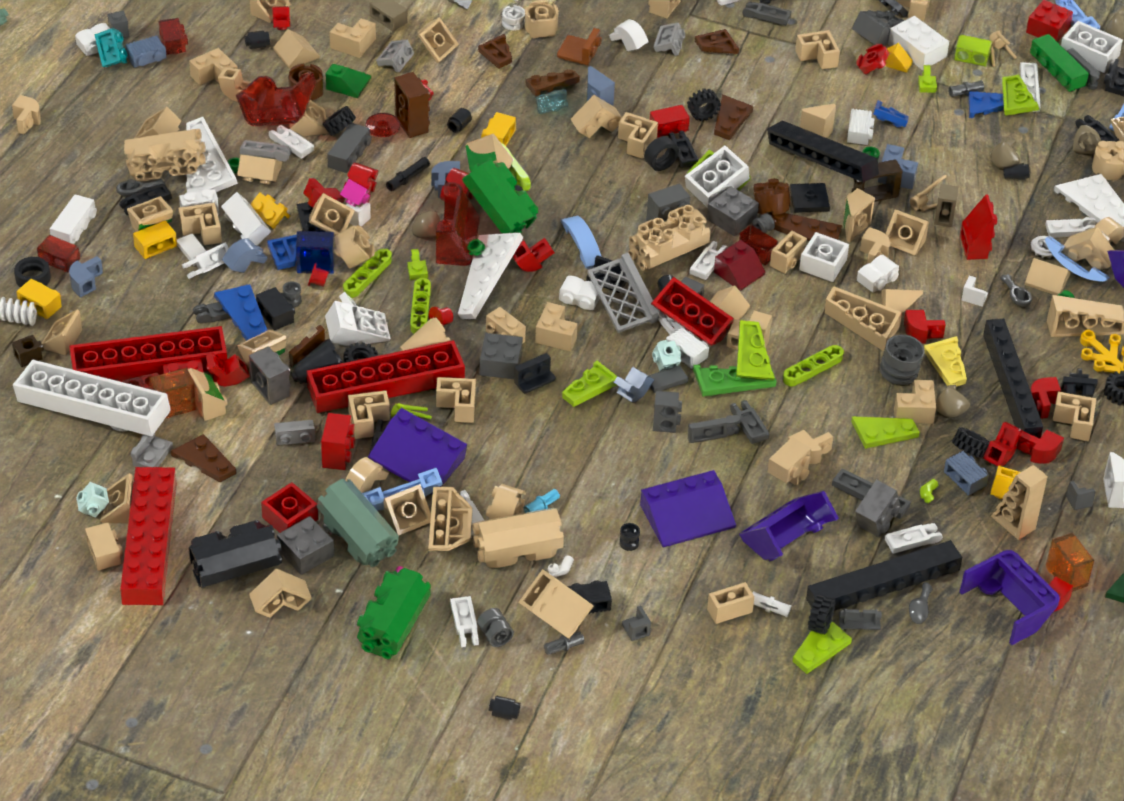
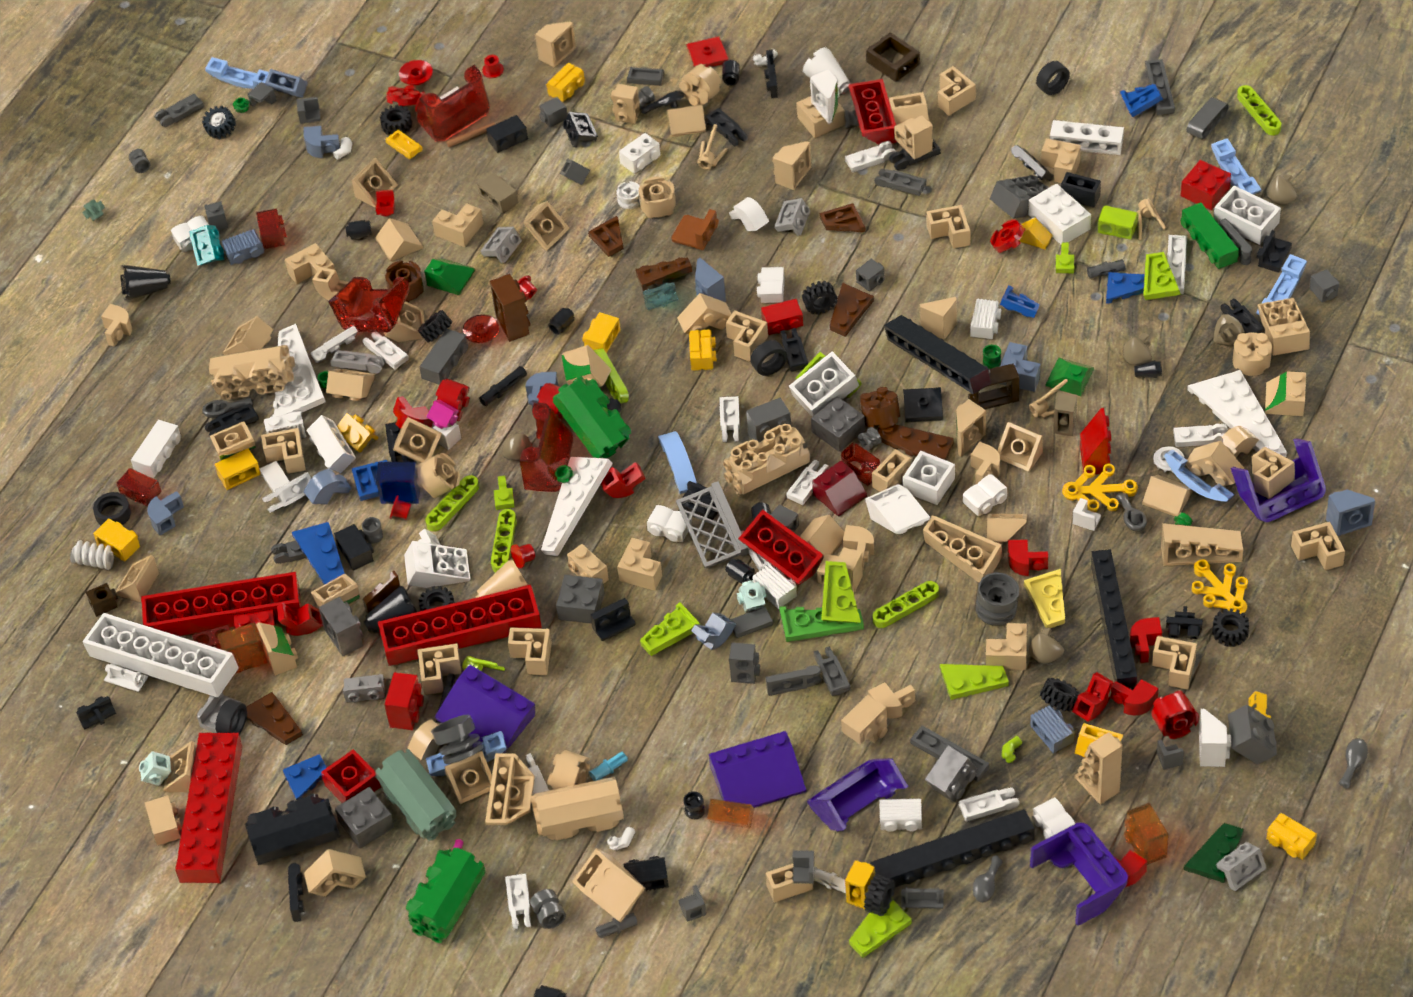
camera: 10 degrees right, 5 degrees up
(28, 450) = (96, 712): none -> black hips
(49, 77) = (142, 281): none -> black cone
(58, 421) = (124, 677): none -> white hinge
(166, 453) = (231, 717): none -> black tyre
(241, 135) = (334, 344): none -> white hinge
(241, 508) = (304, 775): none -> blue wing
(241, 610) = (295, 890): none -> black hinge
(395, 473) = (457, 739): none -> dark grey wheel
(596, 147) = (701, 350): none -> yellow brick
(628, 204) = (729, 417): none -> white hinge
(652, 334) = (739, 571): none -> black brick
(656, 94) = (771, 285): none -> white brick
(666, 543) = (730, 813): none -> clear orange brick
(747, 587) = (803, 867): none -> dark grey panel
(748, 88) = (870, 274): none -> dark grey brick
(764, 305) = (860, 540): none -> tan brick
(797, 282) = (896, 509): none -> white slope
(800, 605) = (857, 883): none -> yellow brick
(830, 546) = (900, 814): none -> white brick
(938, 20) = (1082, 189): none -> black brick
(938, 169) = (1076, 373): none -> green slope
(976, 548) = (1051, 817): none -> white brick
(983, 270) = (1097, 489): none -> yellow plant
(1082, 460) = (1174, 715): none -> red brick

